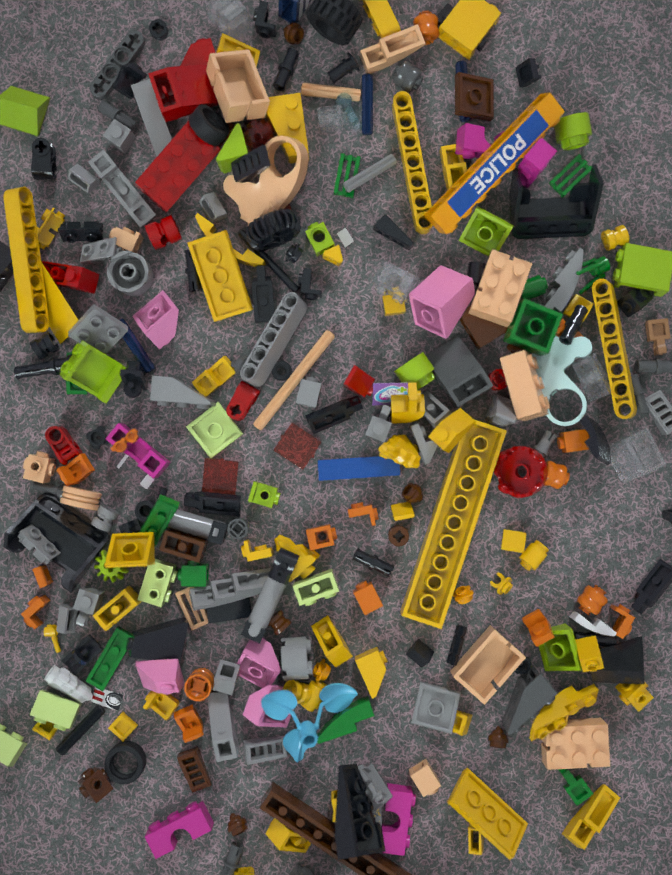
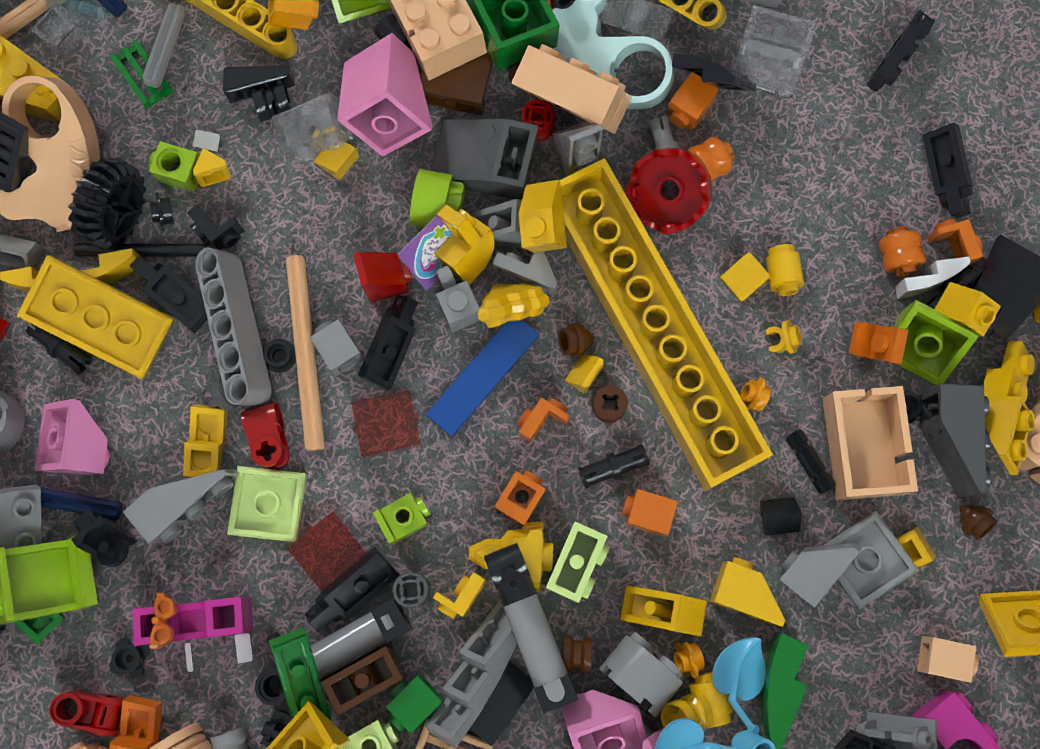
camera: 45 degrees left, 10 degrees down
(391, 250) = (264, 101): none -> black wheel
(410, 691) = (817, 569): none -> light grey slope

